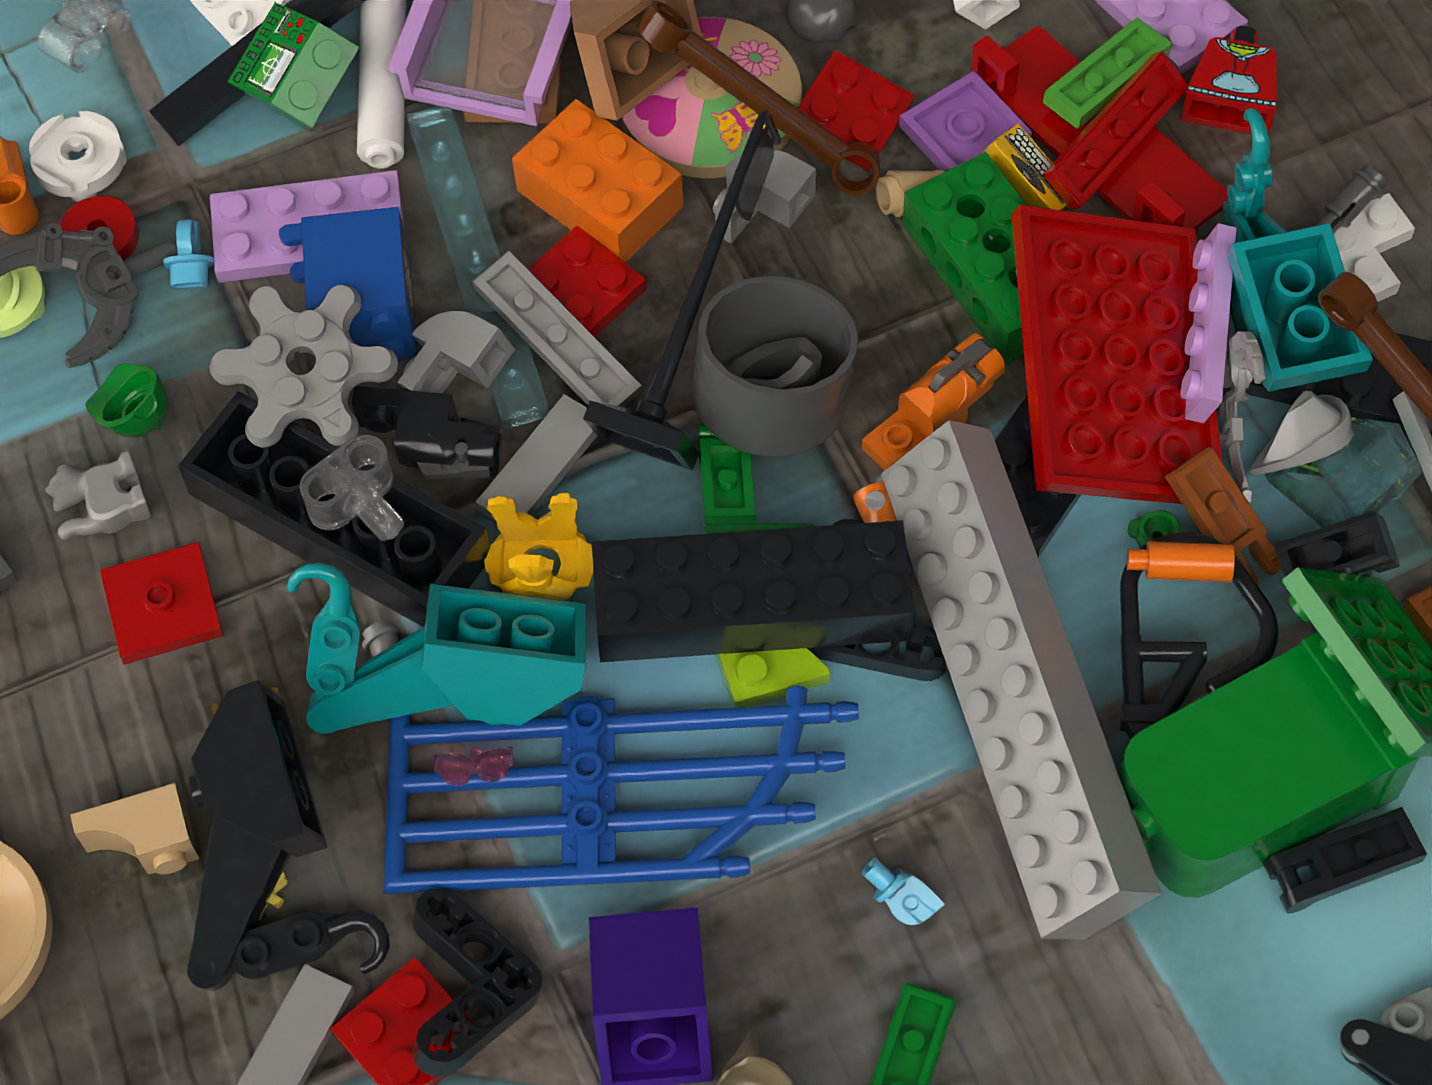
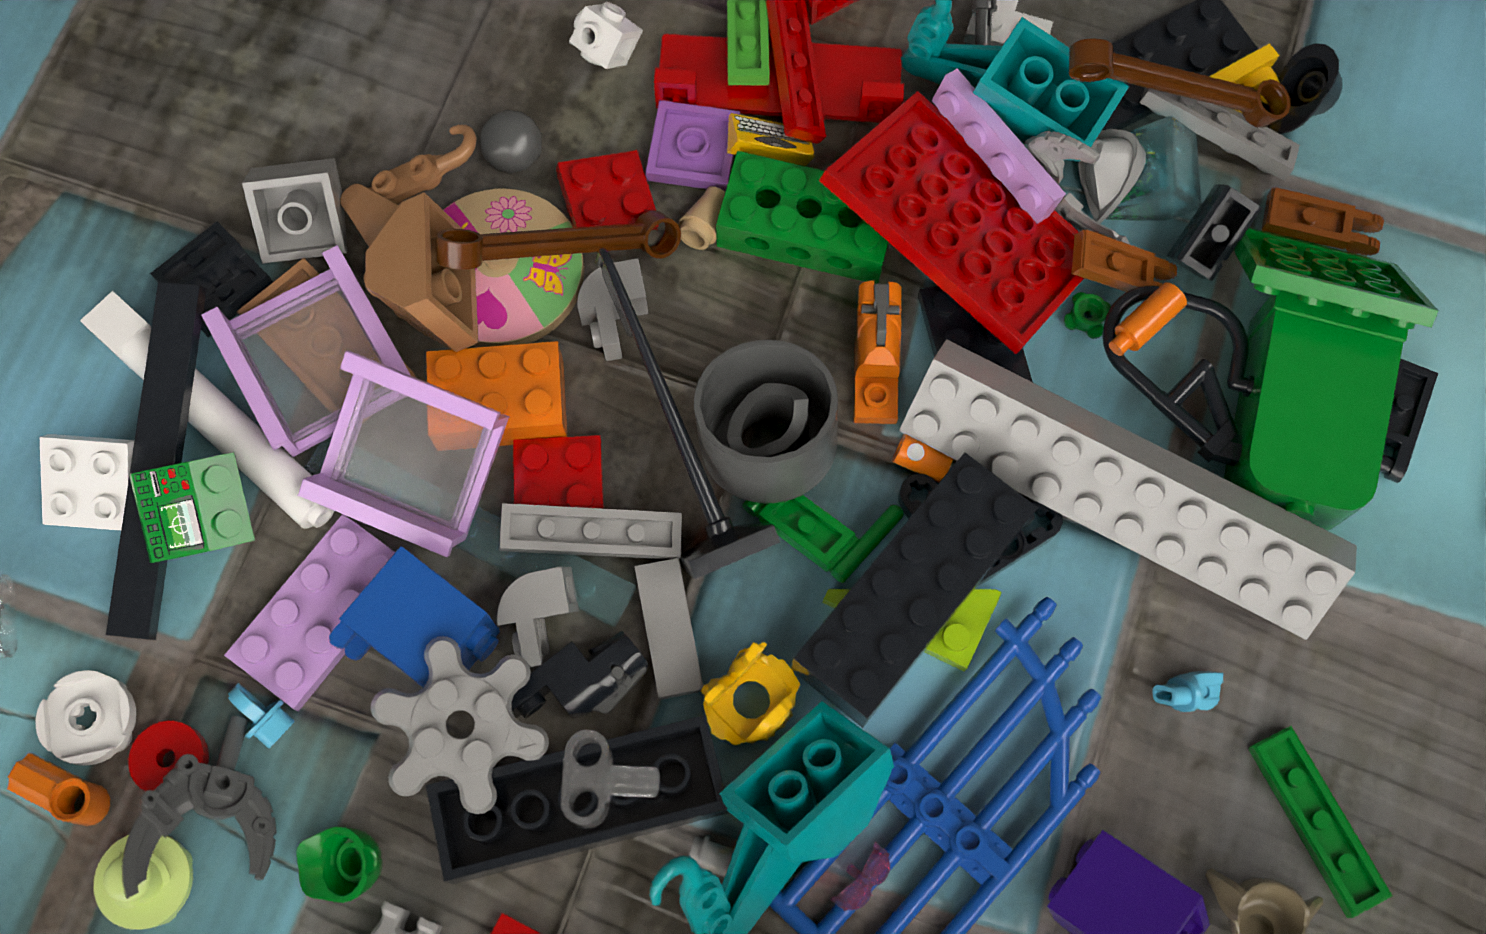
camera: 50 degrees left, 10 degrees up
(477, 160) = (407, 456): none -> piece

